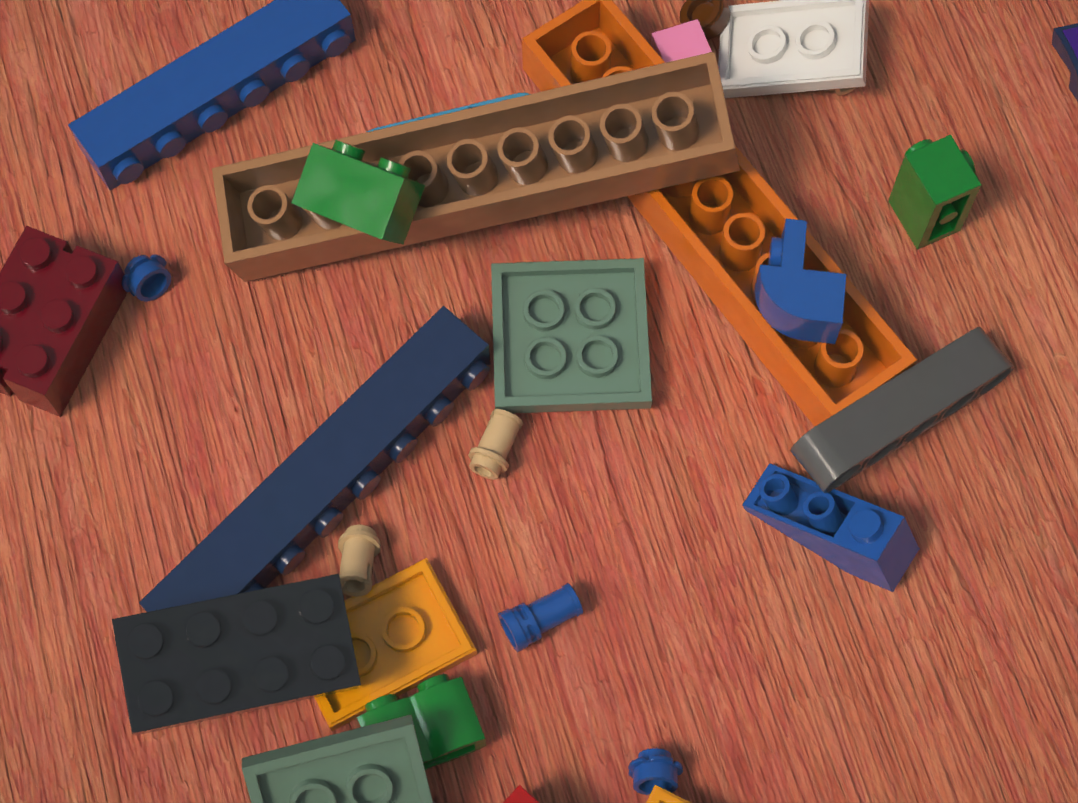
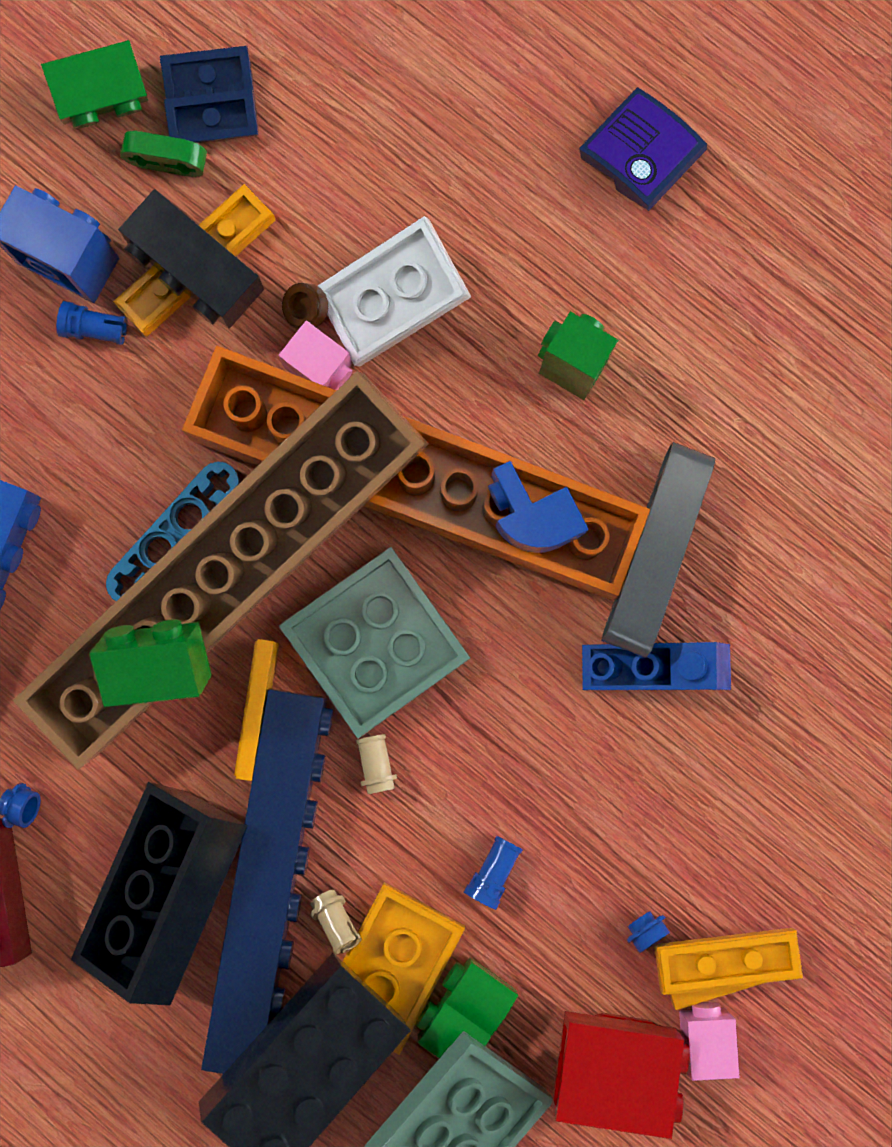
camera: 40 degrees left, 15 degrees up
(217, 418) = (158, 895): none -> black brick
(450, 291) = (260, 681): none -> light orange tile

